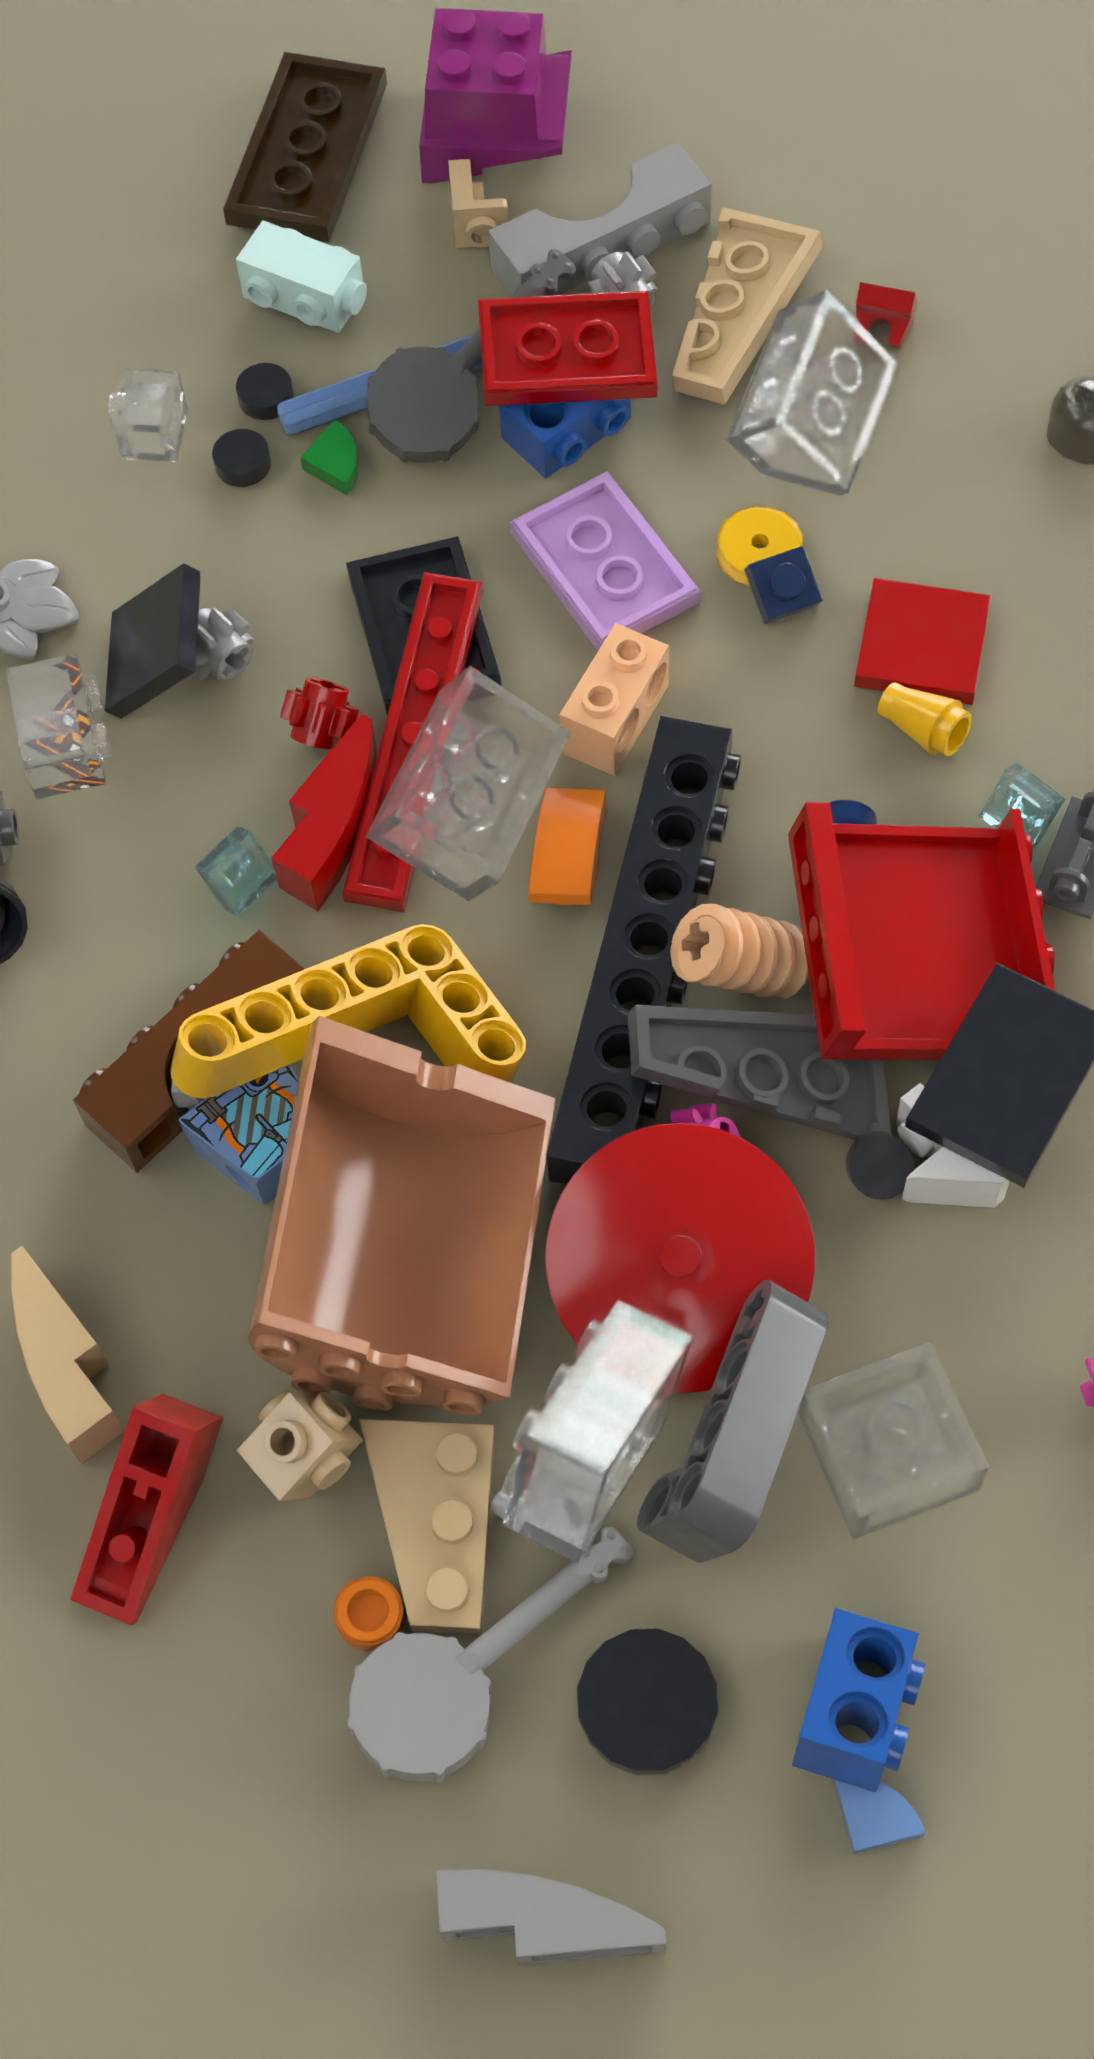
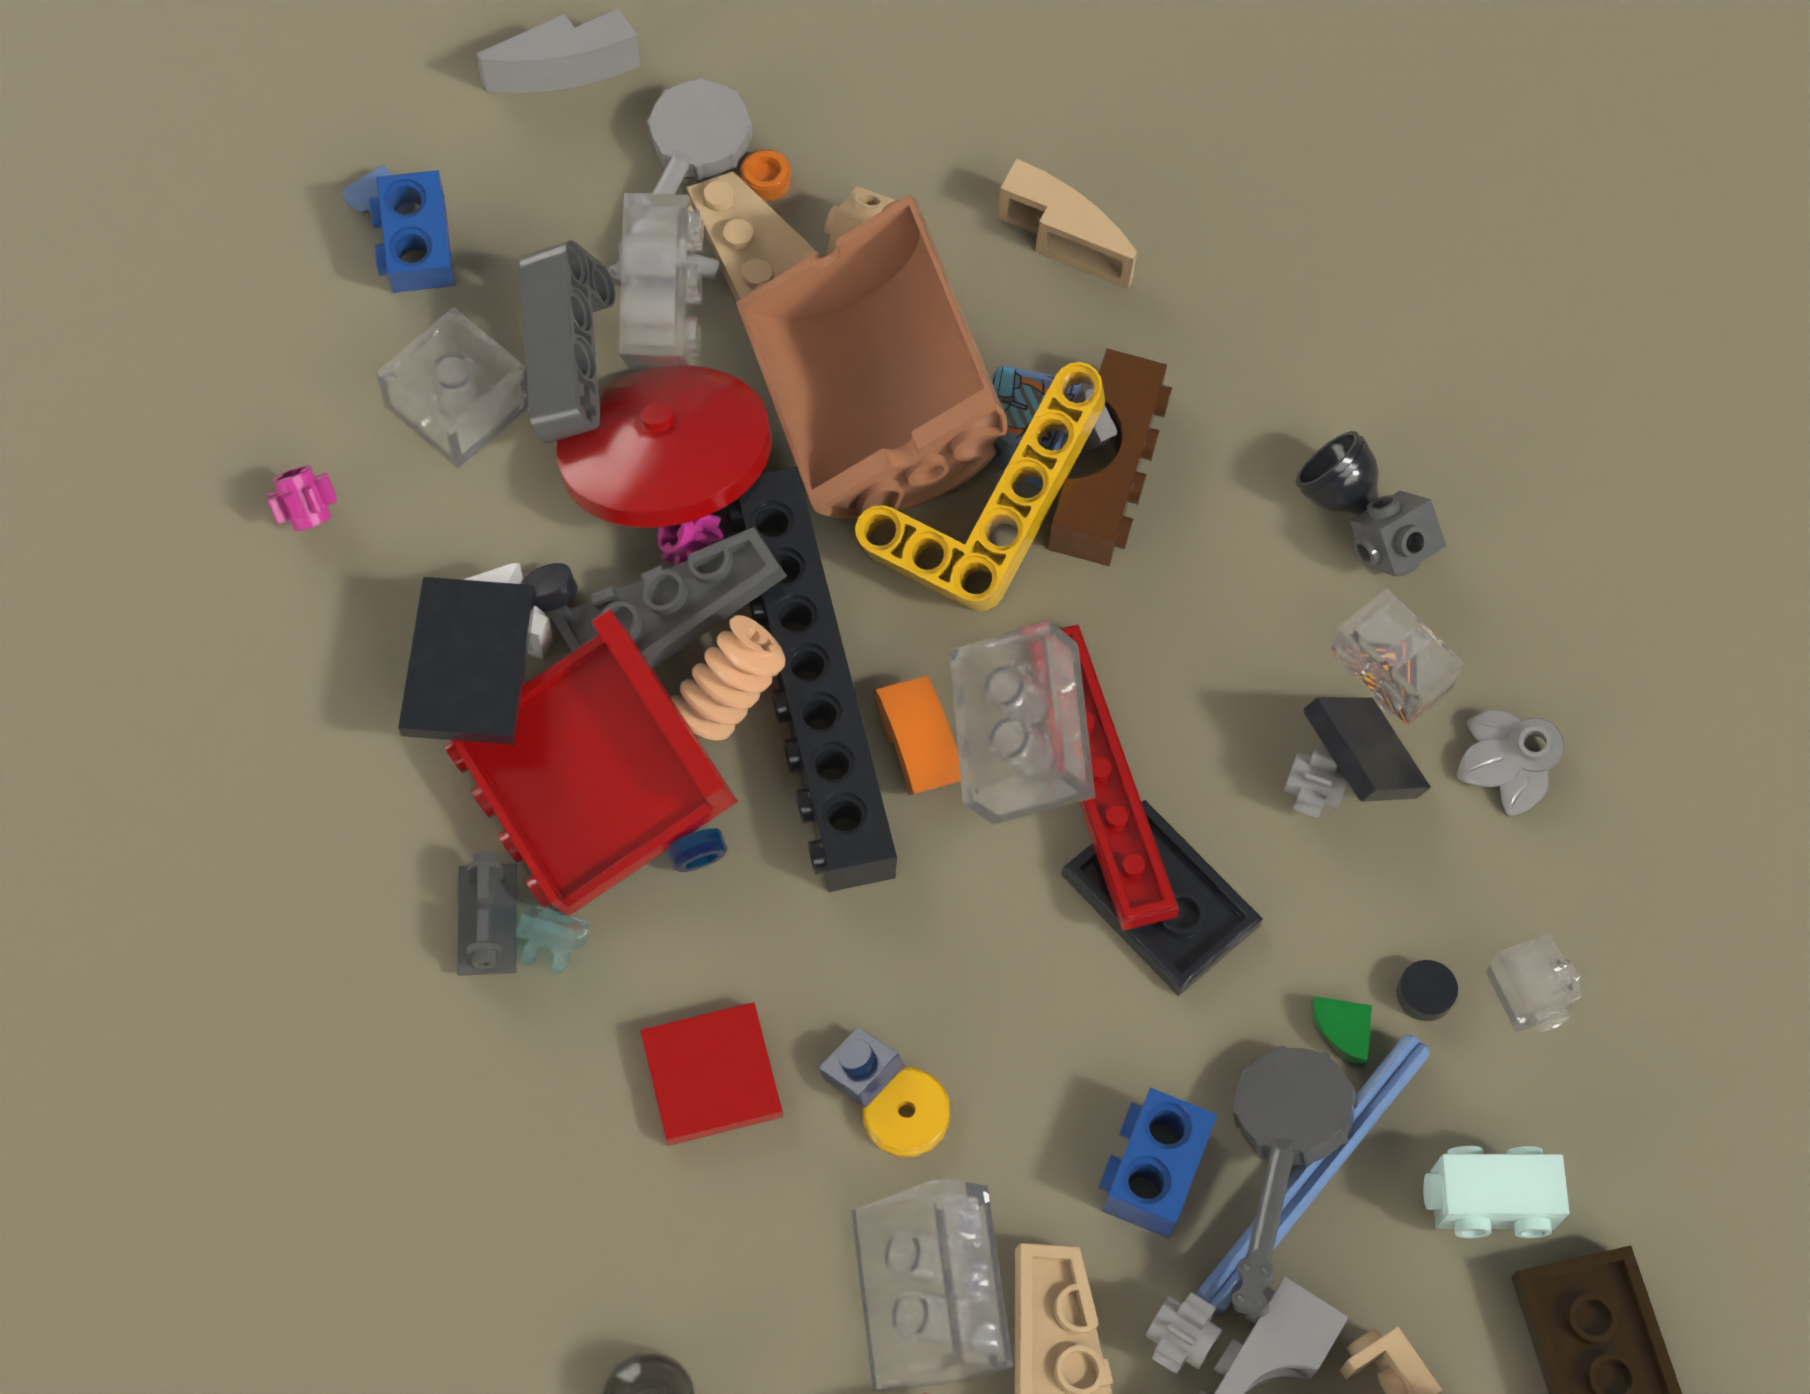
camera: 145 degrees right, 0 degrees up
(145, 1504) = (948, 170): red slope -> none
(237, 871) = (1171, 600): clear light blue tile -> none
(262, 389) = (1454, 1071): black tile -> none
(318, 712) = (1192, 770): red gear -> none
(327, 818) = (1125, 674): red slope -> none
(567, 348) = (1183, 1191): red tile -> none
(604, 560) = (1038, 1031): lavender tile -> none
(615, 698) = (949, 875): light nougat brick -> none
(647, 1701) = (556, 196): black tile -> none
(929, 719) = (673, 985): yellow cone -> none

